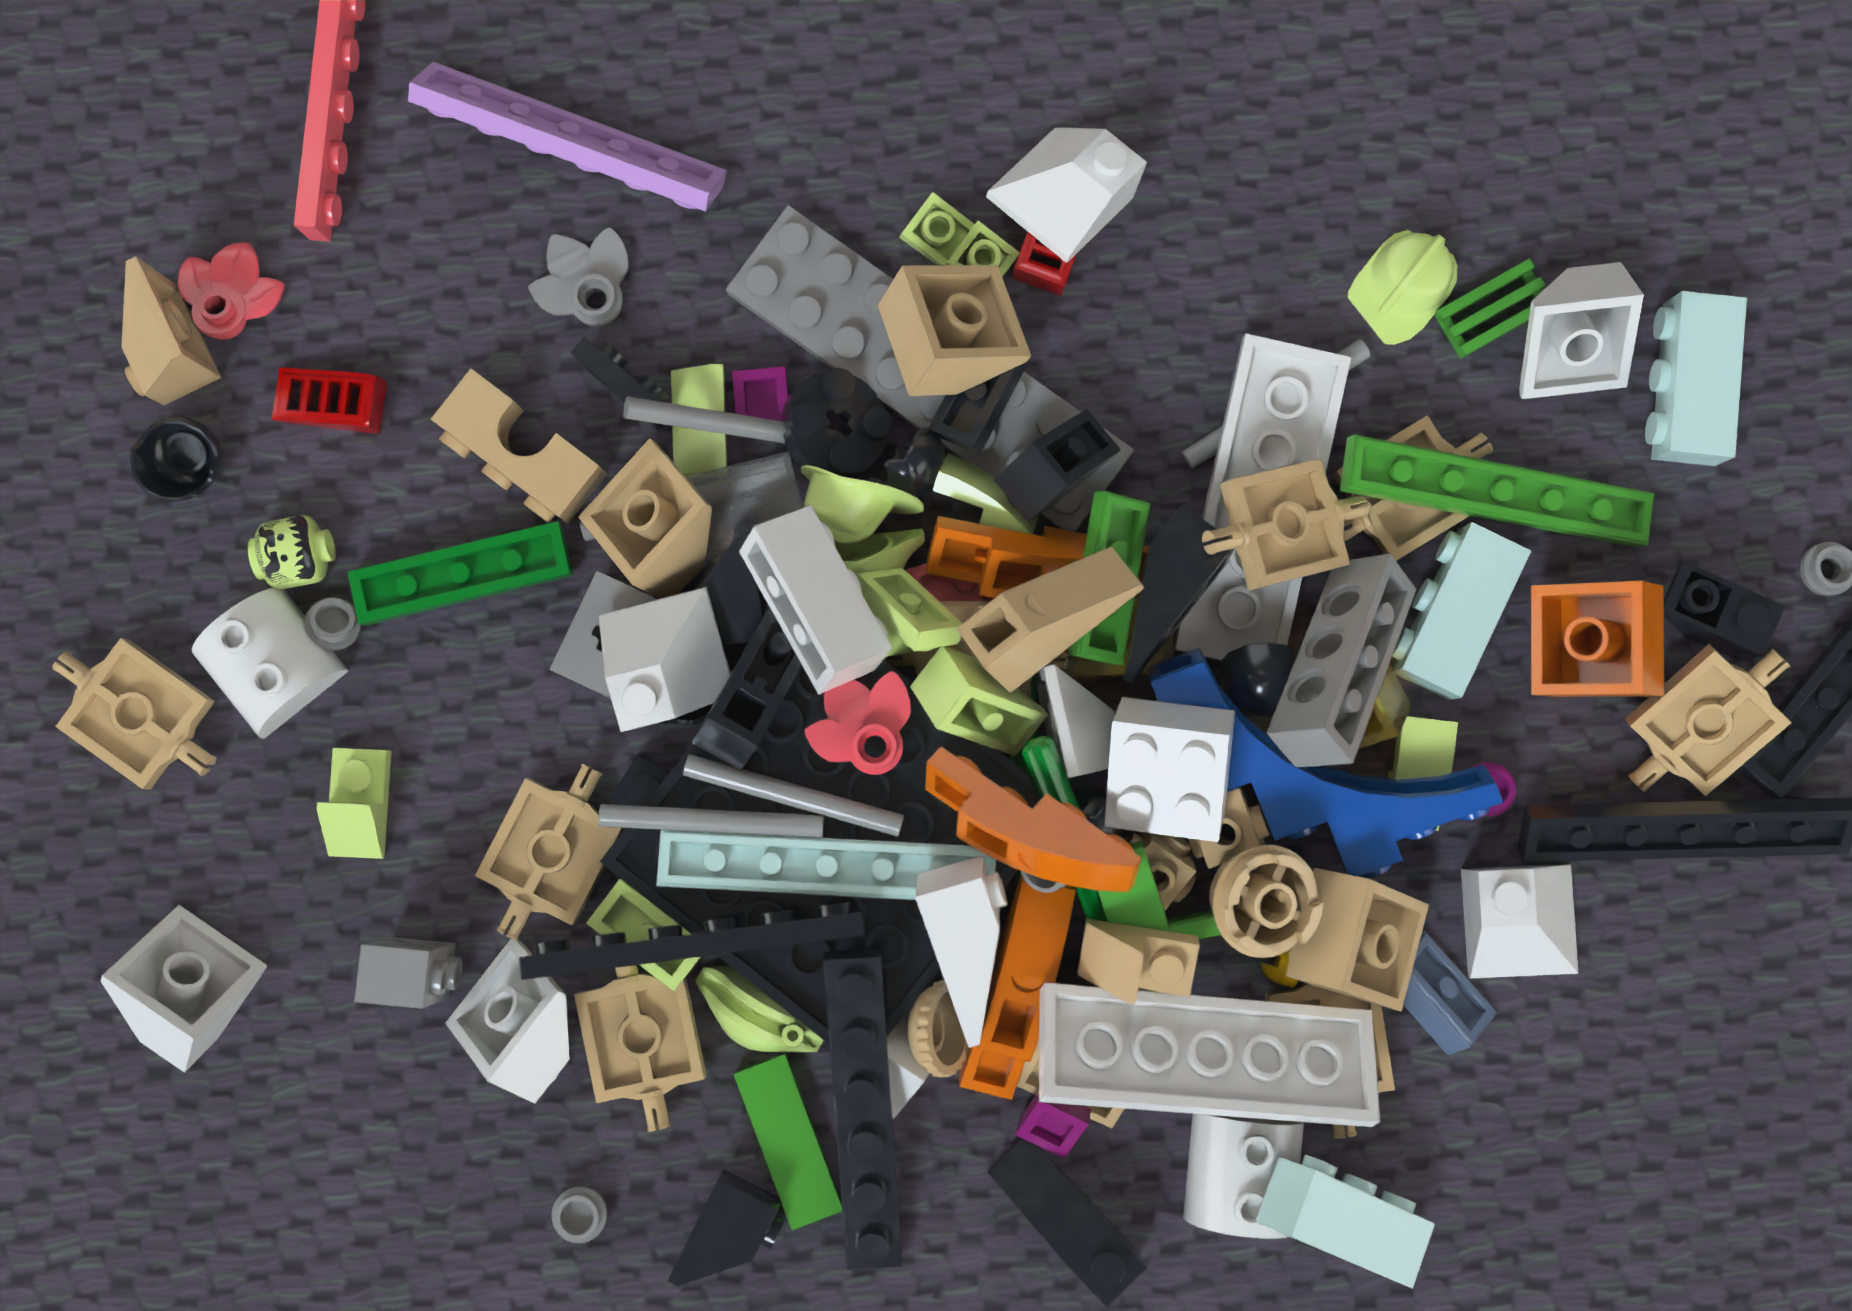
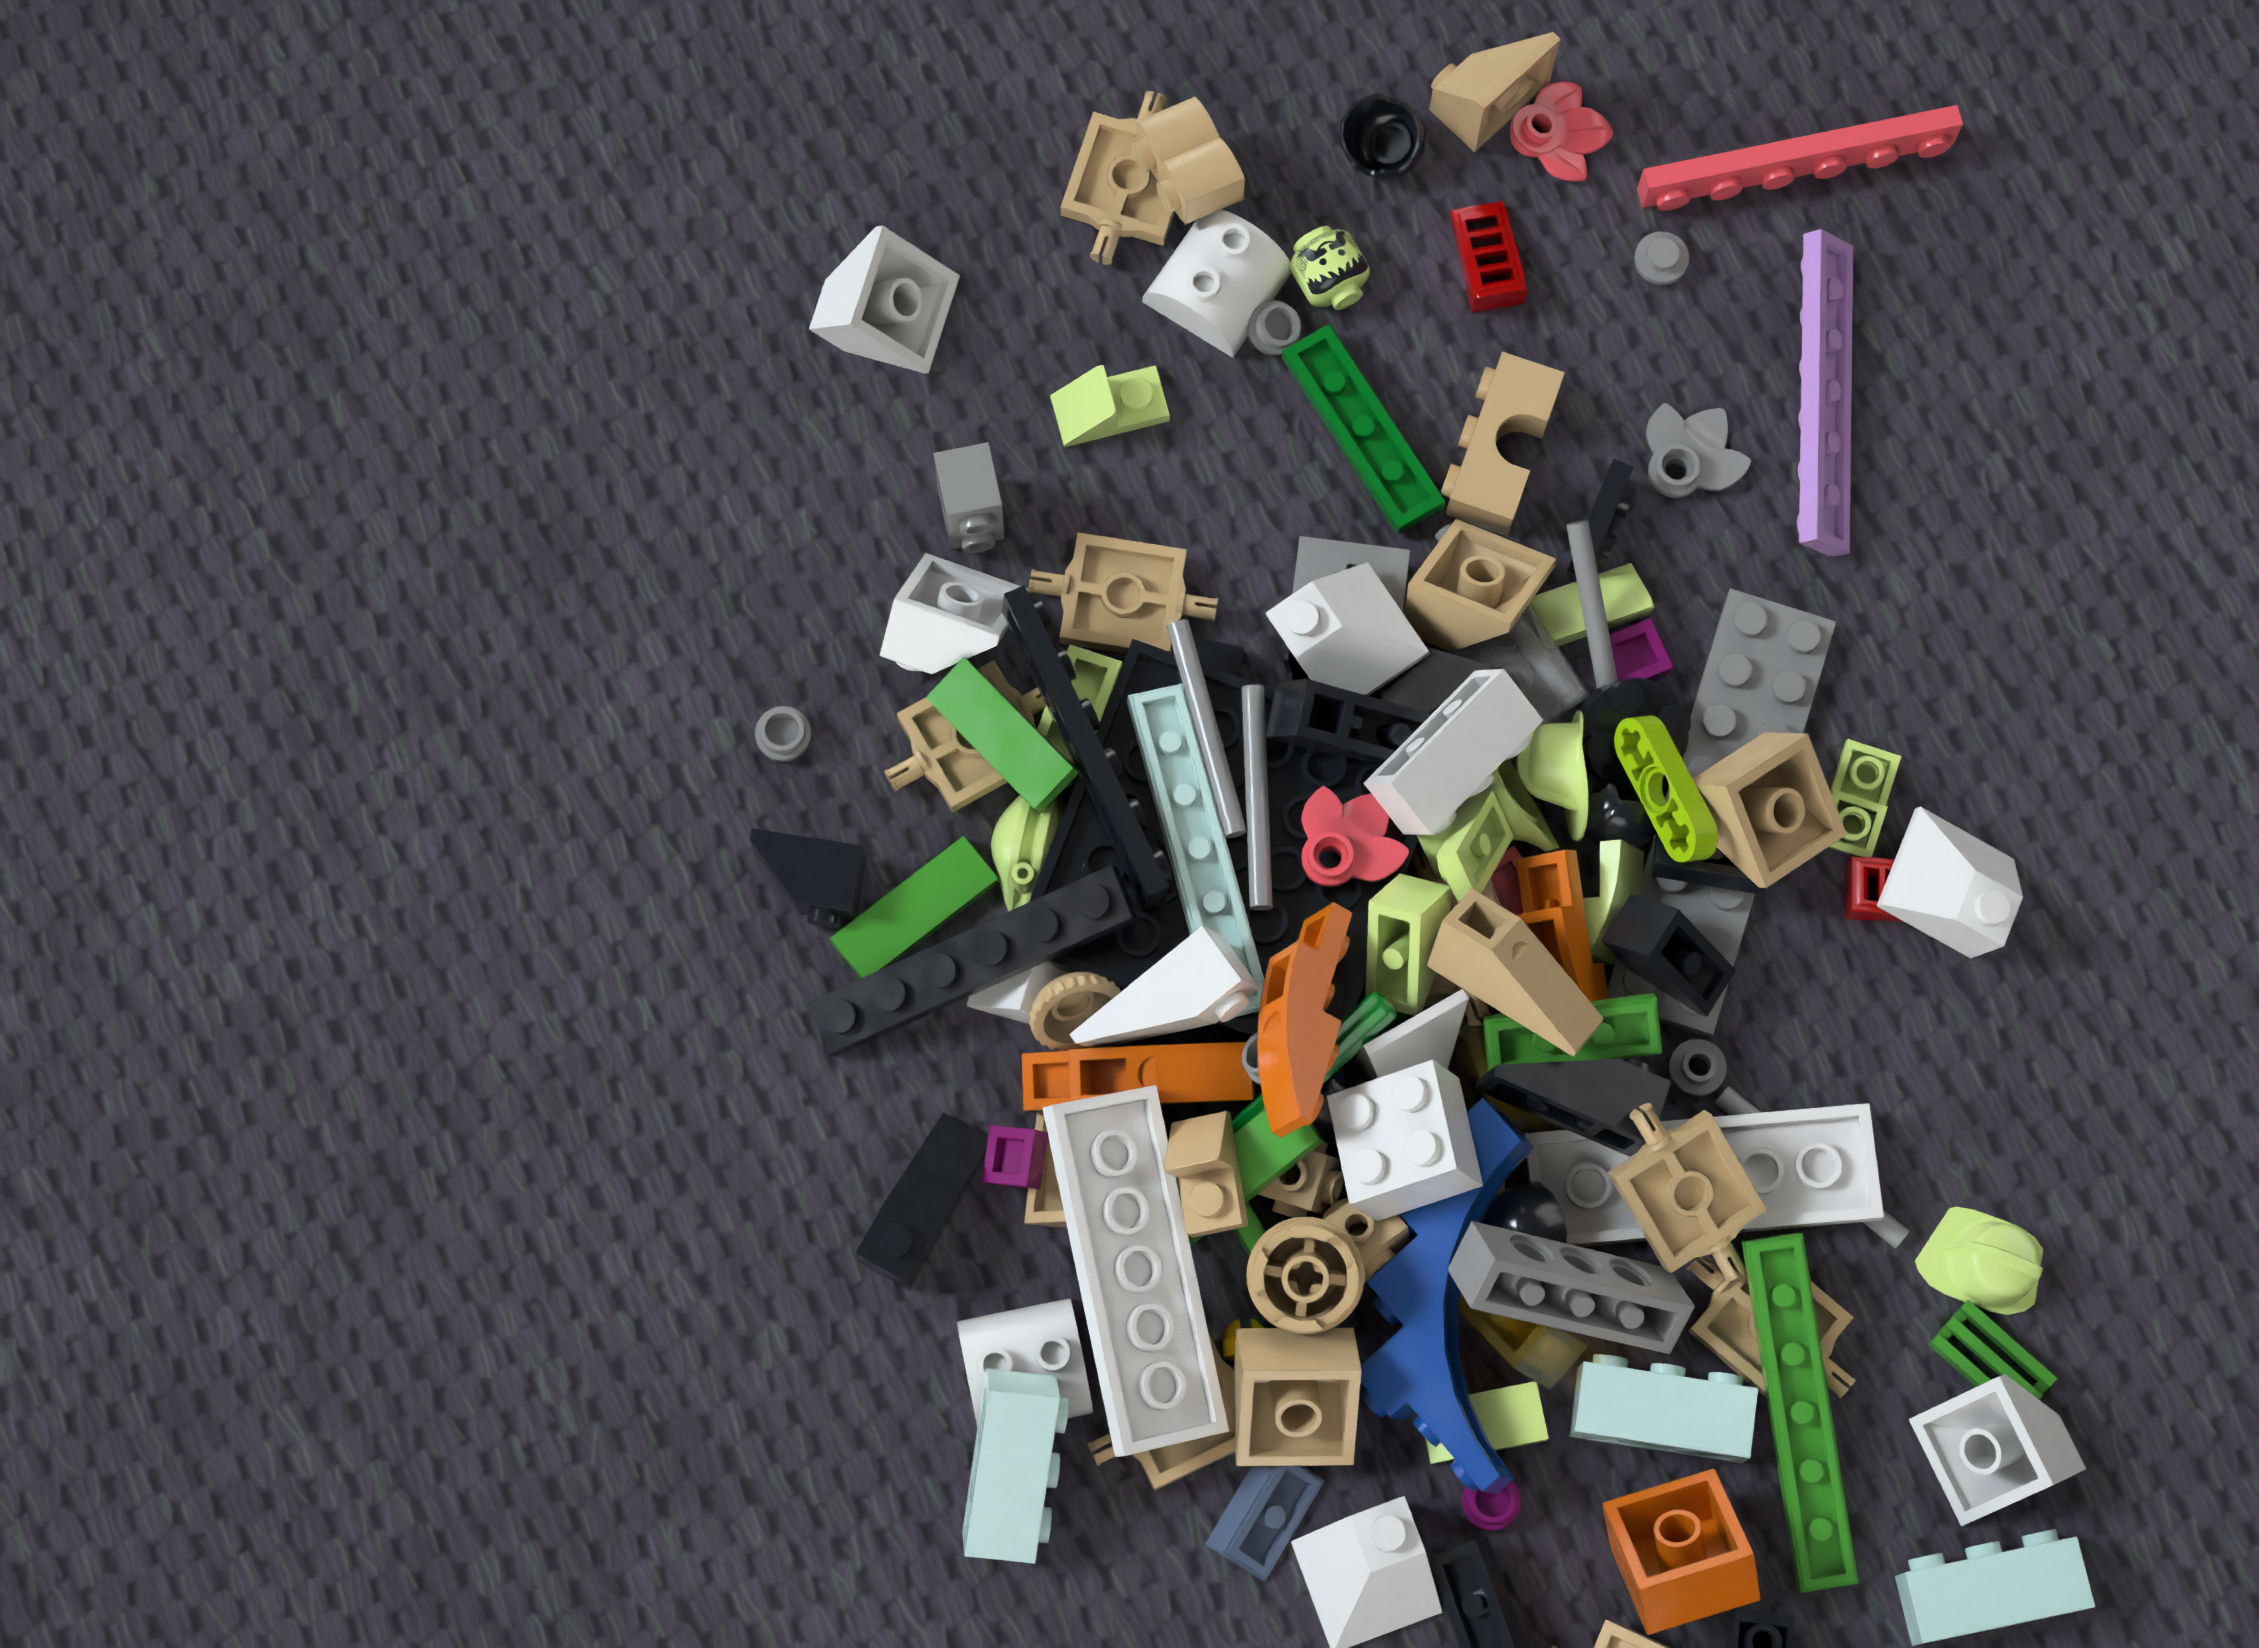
camera: 70 degrees right, 10 degrees down
(137, 653) = (1188, 160): none -> tan brick
(386, 240) = (1661, 258): none -> light grey plate
(654, 1015) = (1002, 735): none -> bright green tile
(959, 408) = (1683, 821): none -> lime beam
(1147, 485) = (1689, 1082): none -> light grey plate

